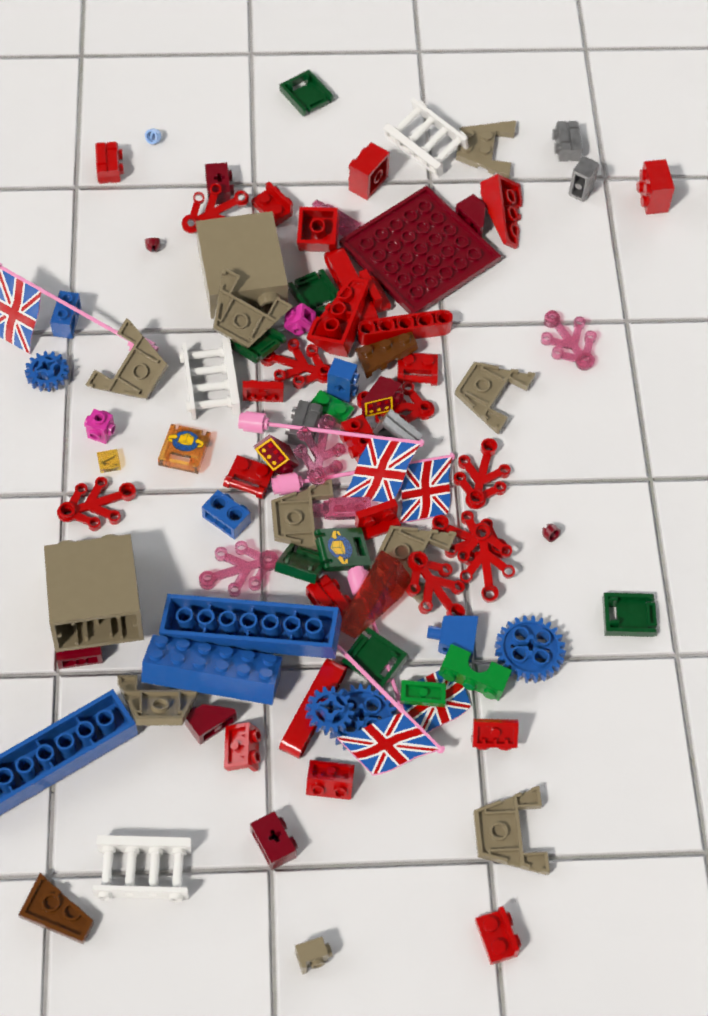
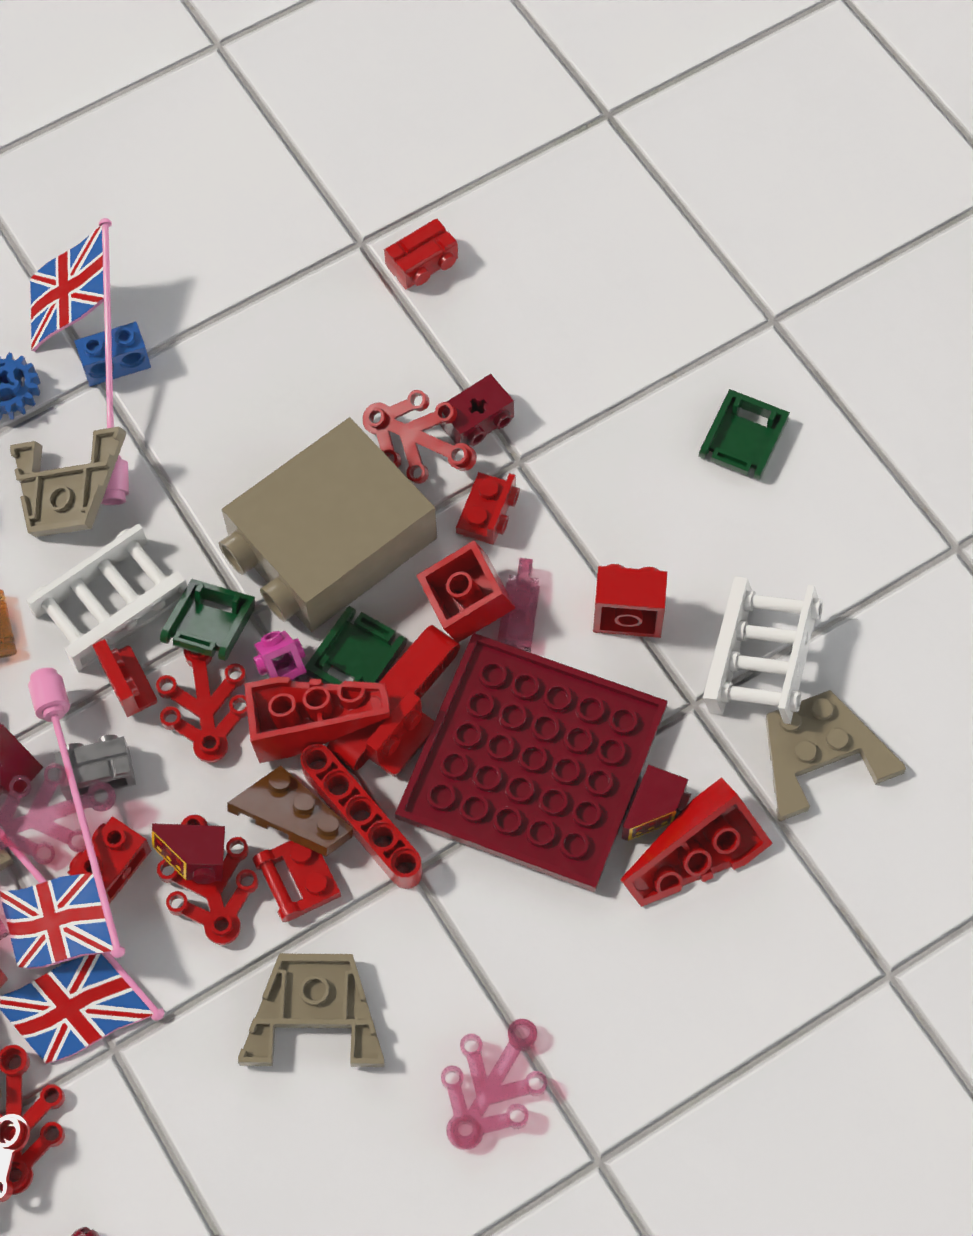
camera: 65 degrees right, 5 degrees up
(151, 134) = (514, 282): light blue hinge -> none
(152, 243) = (312, 391): dark red hinge -> none
(239, 319) = (211, 574): dark tan wing -> none
(338, 409) = (154, 790): green plate -> none
(342, 380) = (192, 776): blue brick -> none
(394, 426) = (138, 907): flat silver brick -> none
(481, 477) = (138, 1078): red plant -> none
(568, 141) = (918, 872): flat silver brick -> none
(583, 178) = (840, 938): flat silver brick -> none
(655, 186) = (904, 1068): red brick -> none

